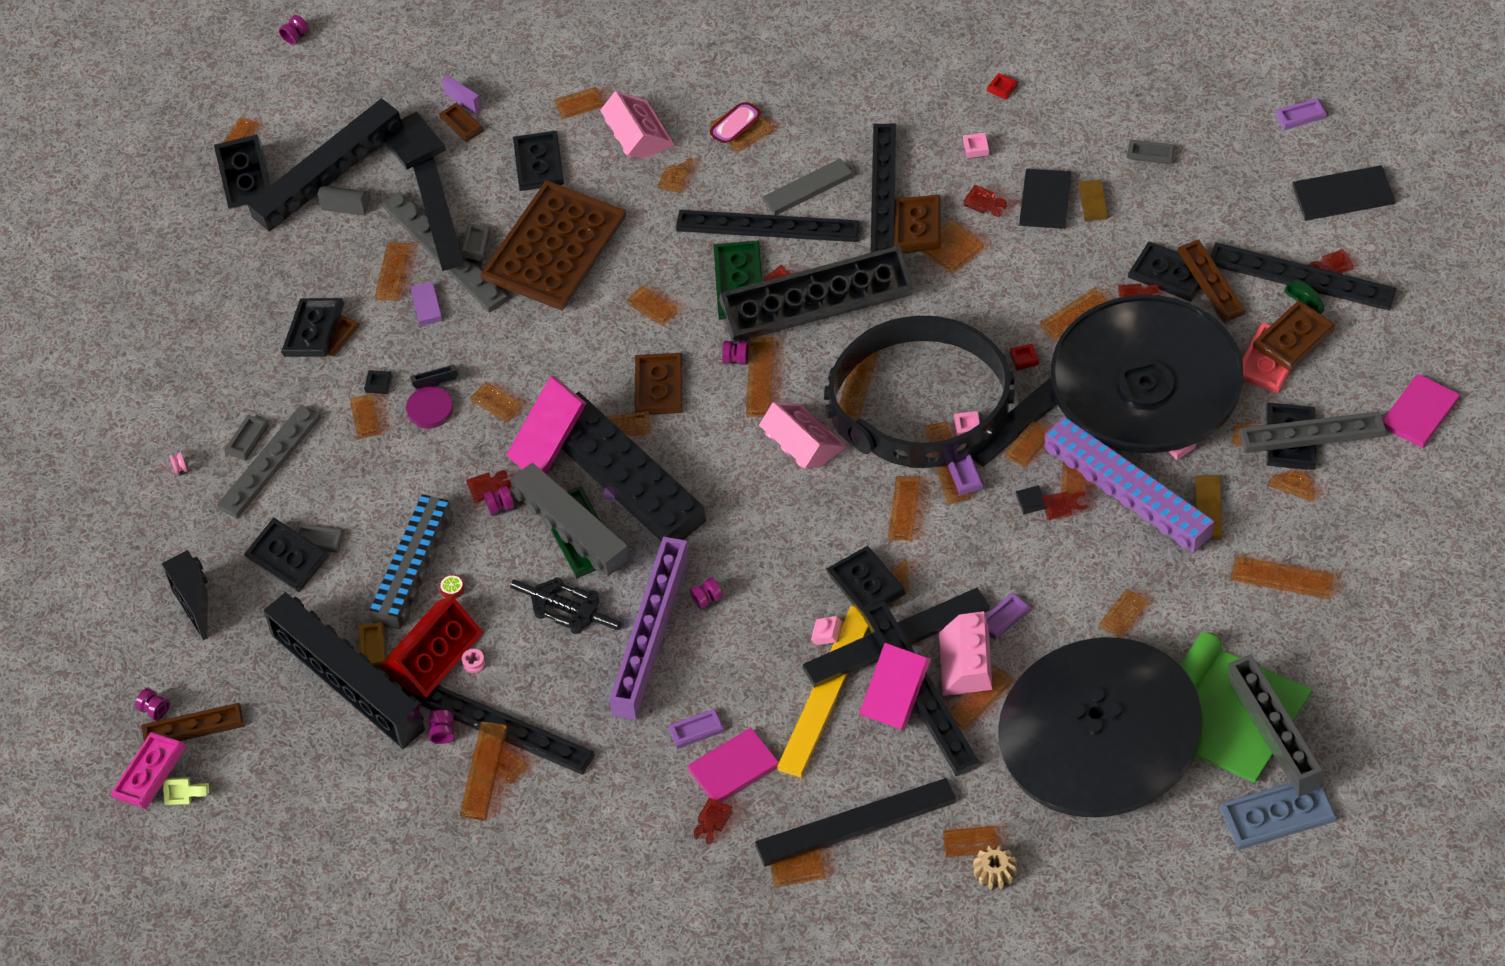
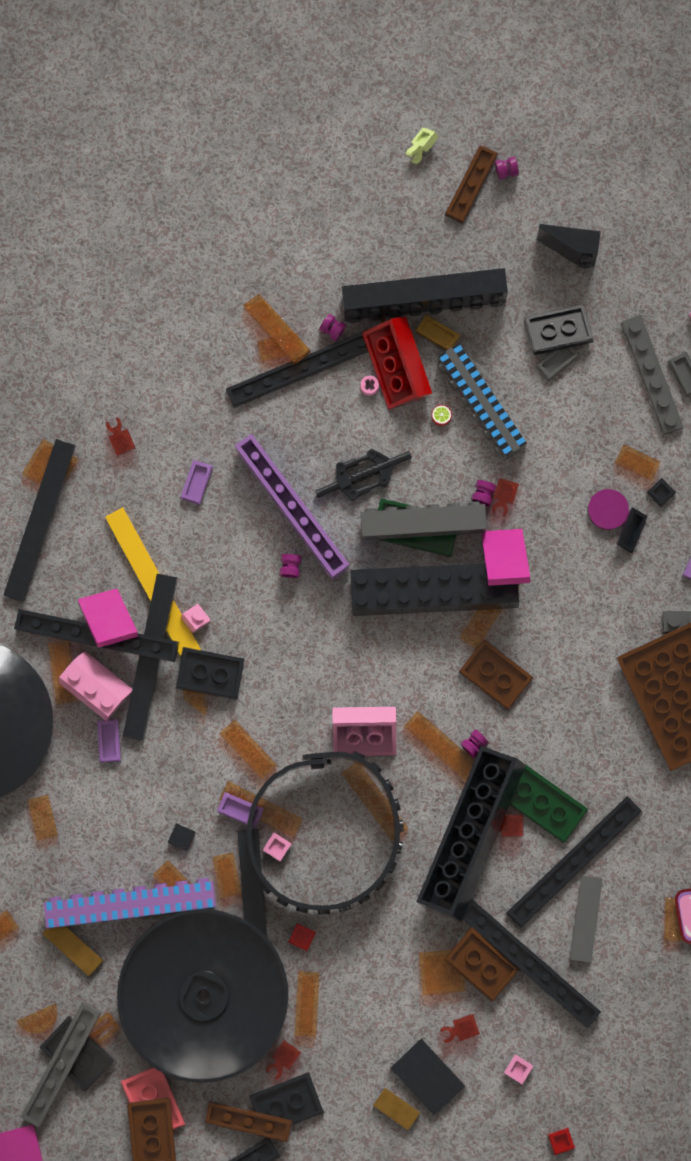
camera: 125 degrees right, 25 degrees up
(148, 770) = (452, 130): dark pink tile -> none
(496, 402) = (574, 556): clear orange tile -> none
(652, 305) = (569, 724): clear orange tile -> none
(675, 176) = (678, 835): clear orange tile -> none
(733, 765) = (148, 482): dark pink tile -> none
(1060, 505) = (157, 850): clear red plate -> none

